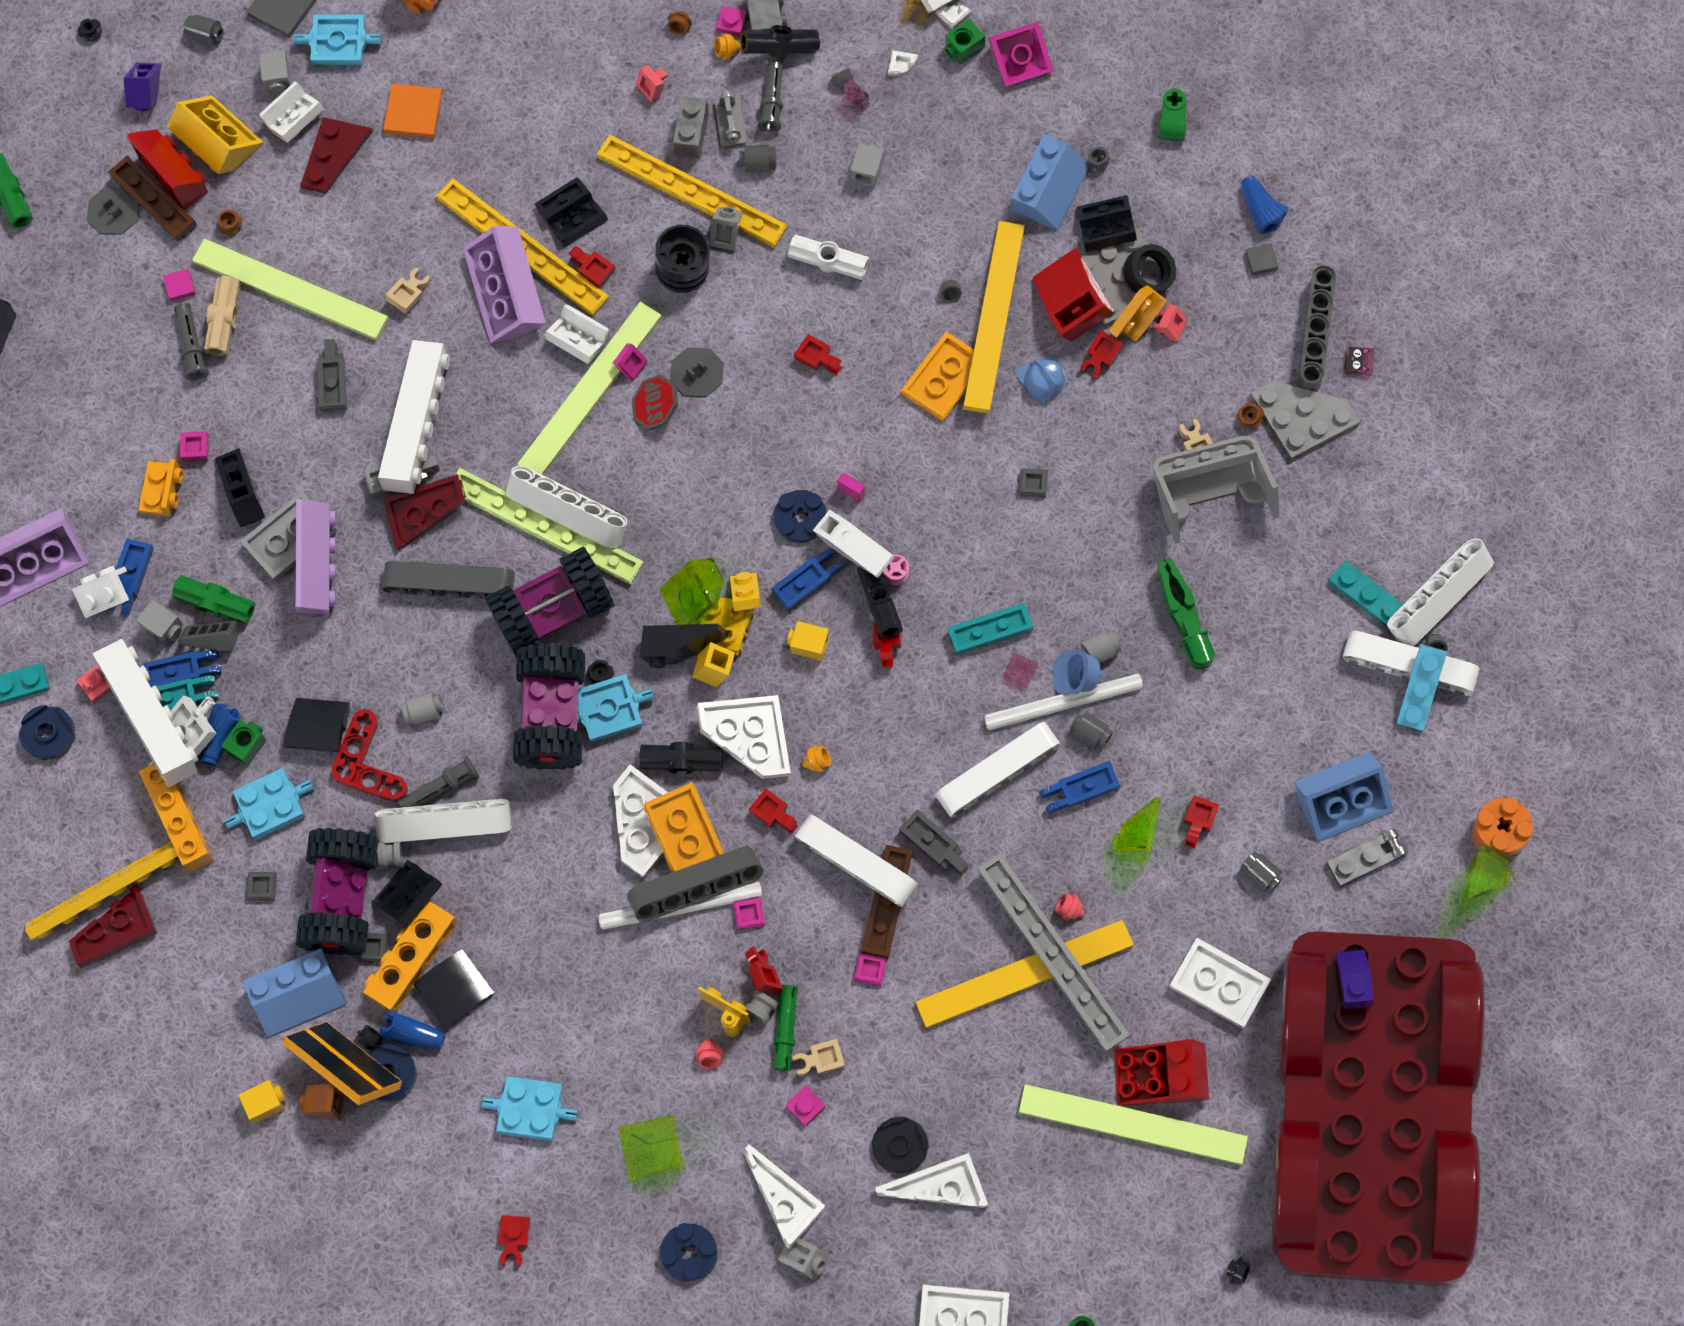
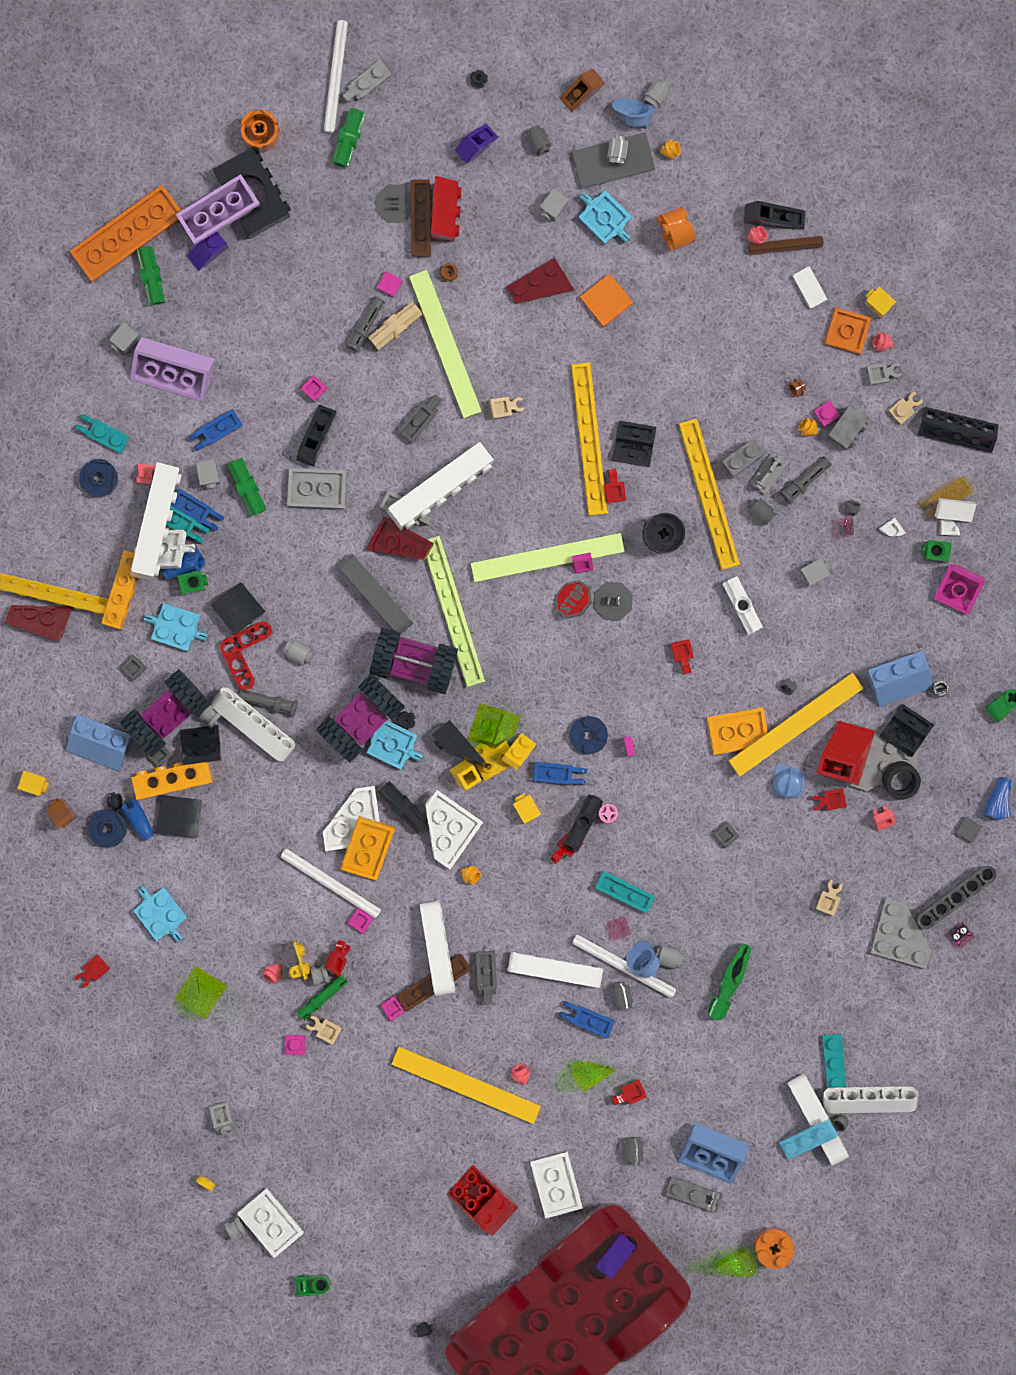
camera: 40 degrees right, 15 degrees up
(101, 592) = (193, 427): white bracket -> none
(160, 488) = (275, 395): light orange bracket -> none
(210, 636) = (230, 515): dark grey slope -> none
(213, 133) = (487, 211): yellow slope -> none
(290, 112) = (539, 239): white bracket -> none
(313, 557) = (313, 520): lavender slope -> none
(342, 1063) = (87, 806): black tile -> none
(503, 284) = (557, 454): lavender slope -> none
(566, 506) = (472, 613): white beam -> none
(578, 334) = (569, 521): white bracket -> none
(651, 82) = (747, 410): coral tile -> none
(692, 1268) = (179, 1067): dark blue plate -> none
(694, 884) = (346, 881): dark grey beam -> none
(725, 228) = (705, 535): light grey bracket -> none
(771, 810) = (421, 878): red plate -> none
(780, 41) = (837, 455): black piece -> none
(788, 1202) = (240, 1085): white wing -> none
(853, 543) = (597, 782): white slope -> none
(892, 1147) = (322, 1109): black tile -> none
(945, 1183) = (325, 1149): white wing -> none
(1053, 952) = (488, 1090): light grey plate -> none
(1133, 1124) = (444, 1210): yellowish green tile -> none
(1138, 314) = (870, 799): light orange bracket -> none
(1212, 473) = (818, 920): light grey windscreen -> none
(1245, 410) = (873, 904): dark orange plate -> none

